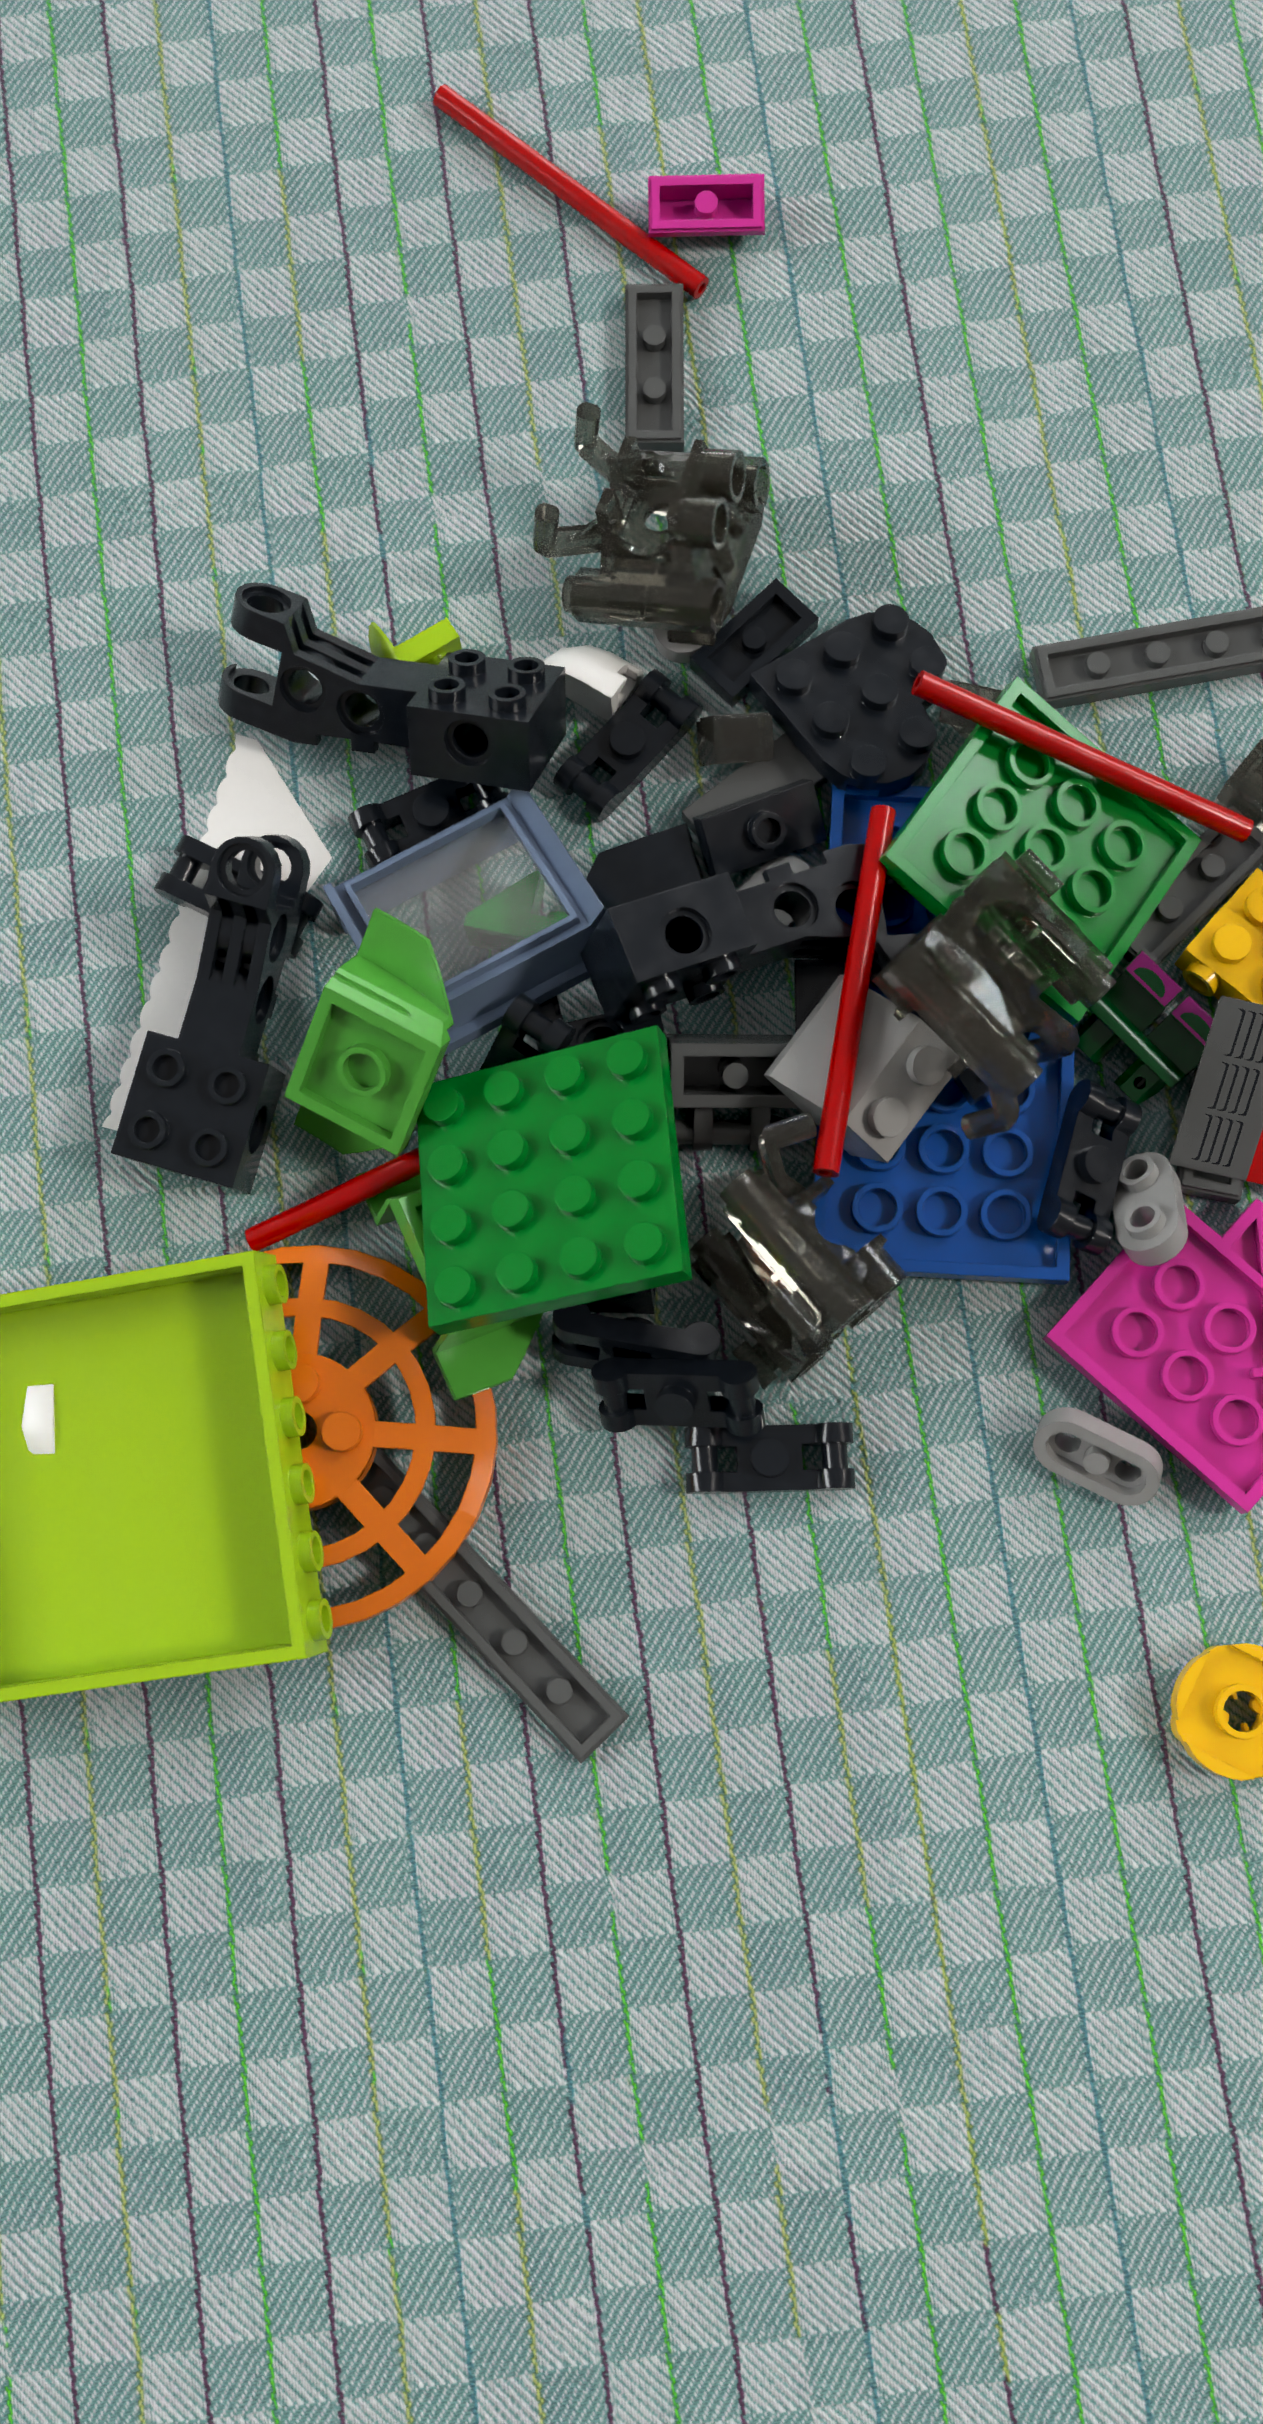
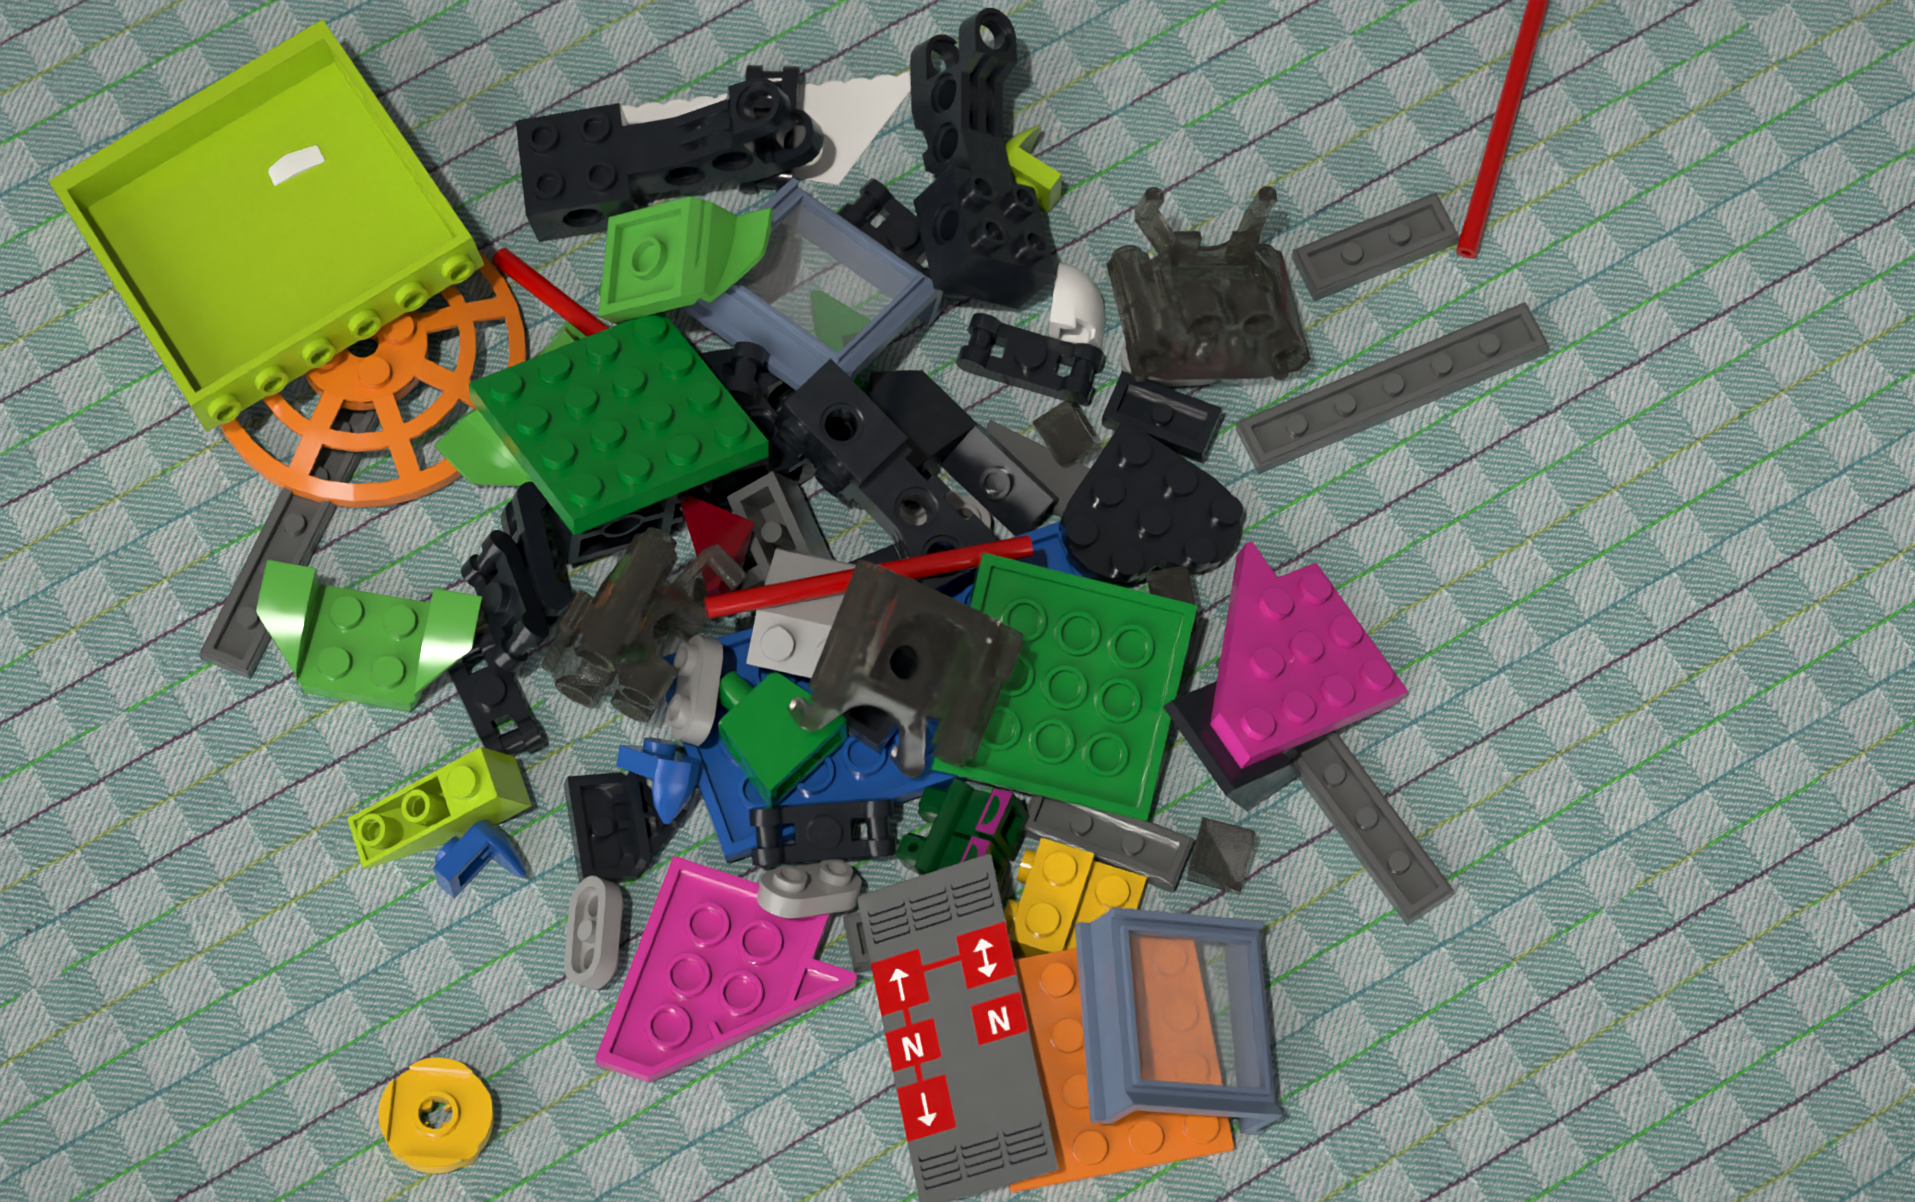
camera: 60 degrees right, 10 degrees down
(648, 1566) = (361, 641): none -> bright green piece
(706, 205) = (1535, 225): dark pink slope -> none
(720, 1136) = (716, 526): none -> dark red slope
(816, 419) = (1391, 387): none -> dark grey tile
(858, 1214) = (695, 700): none -> light grey plate
(885, 1567) = (440, 807): none -> lime slope
(945, 1303) = (671, 771): none -> blue plate
(955, 1563) = (465, 857): none -> blue plate
(962, 1178) = (766, 738): none -> green torso
(977, 1383) = (614, 825): none -> black slope
(1081, 756) = (1154, 685): red piece -> none
(1100, 621) = (1292, 662): none -> dark pink wing
(1164, 712) = (1243, 786): none -> black slope

